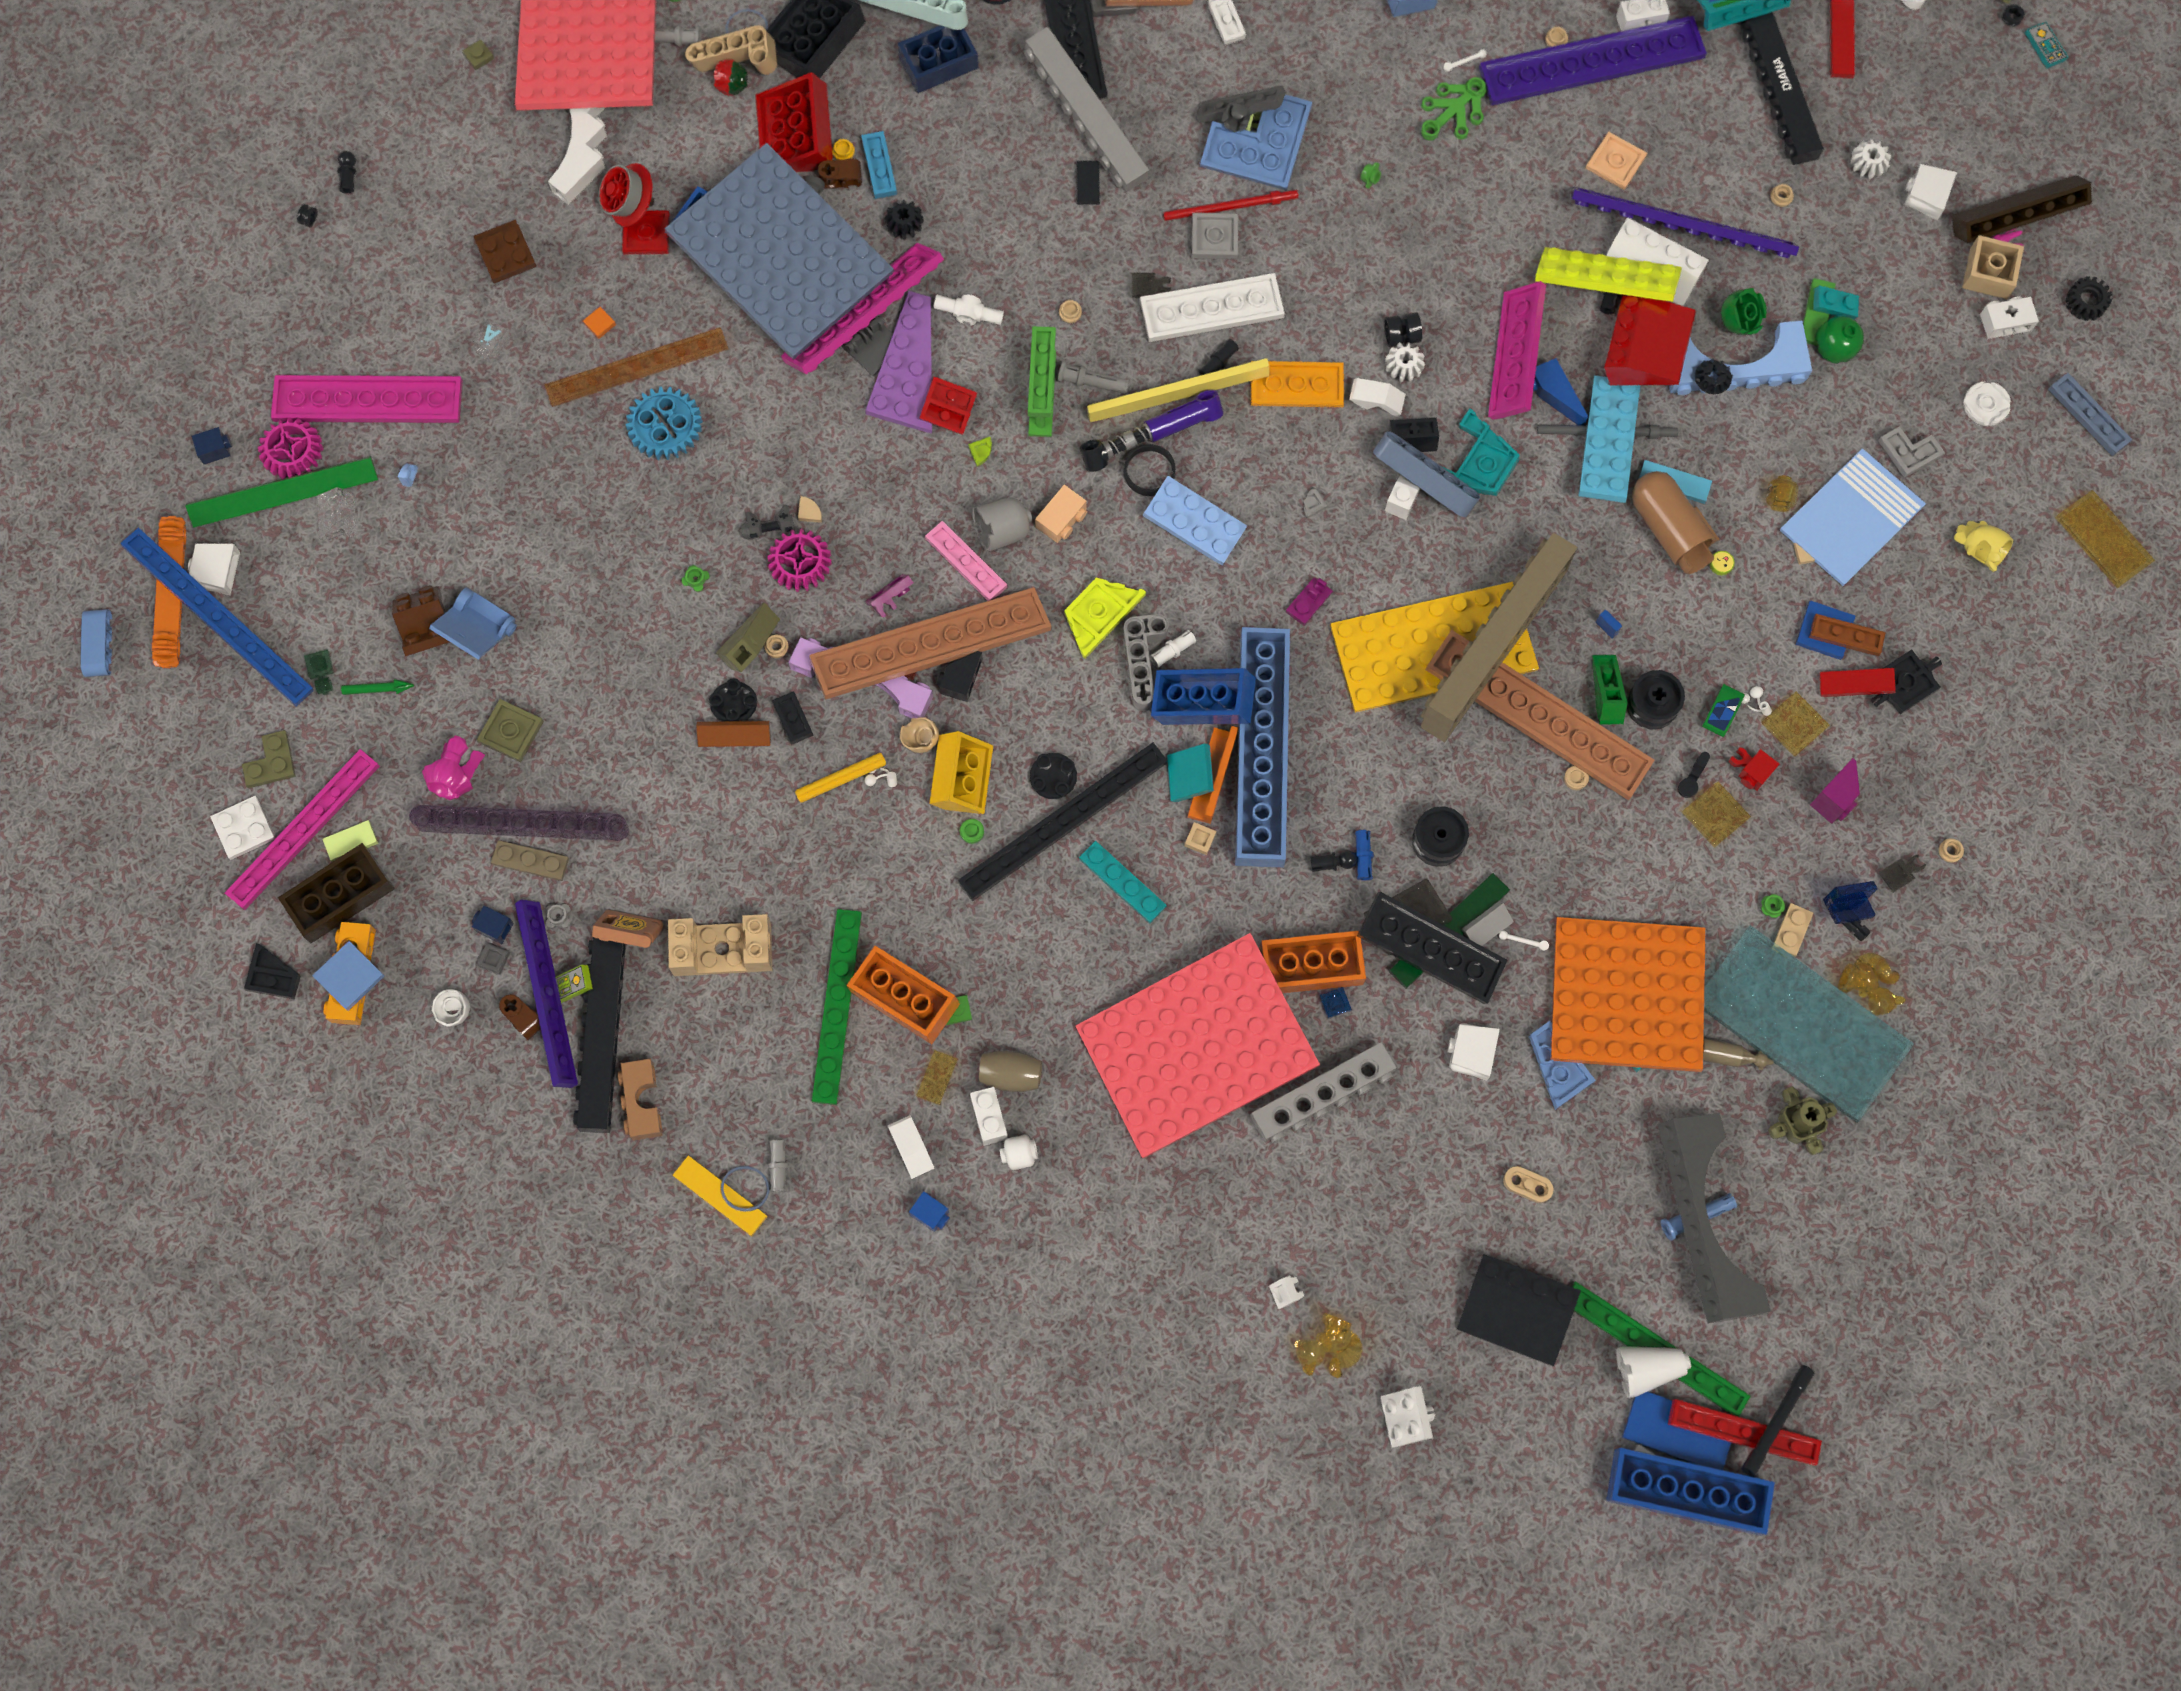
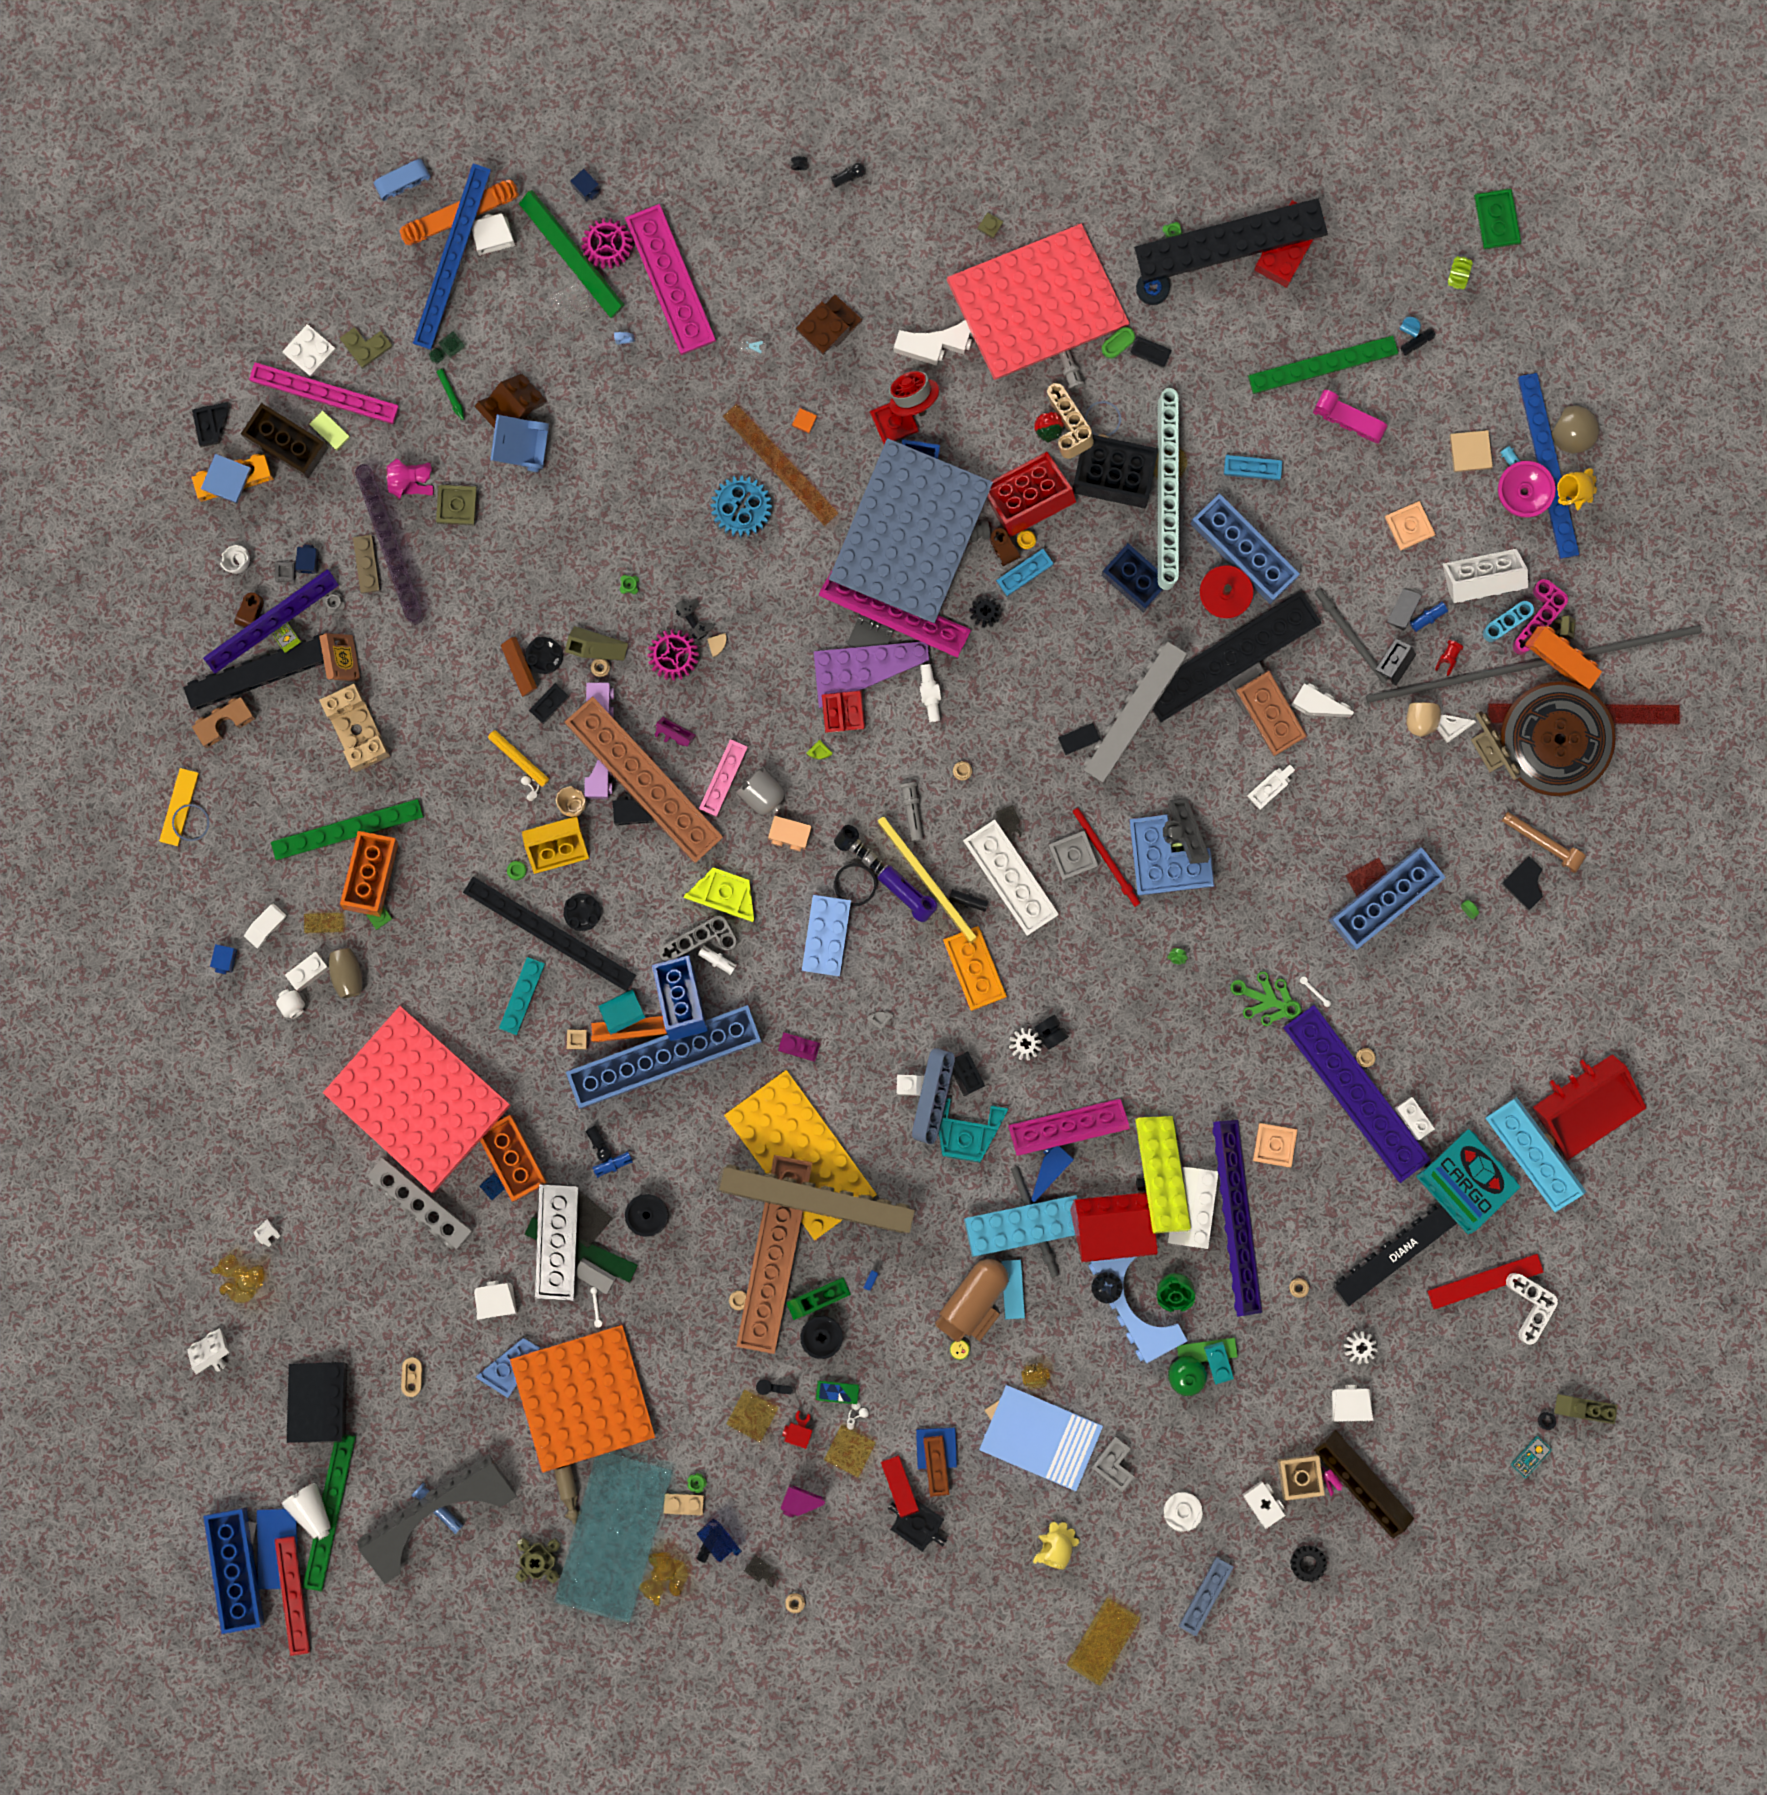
camera: 70 degrees right, 10 degrees up
(778, 1166) = (215, 838): light grey pin -> none
(1042, 381) = (885, 774): bright green fence -> none
(1373, 394) = (987, 1034): white slope -> none
(1758, 1454) = (277, 1609): black piece -> none

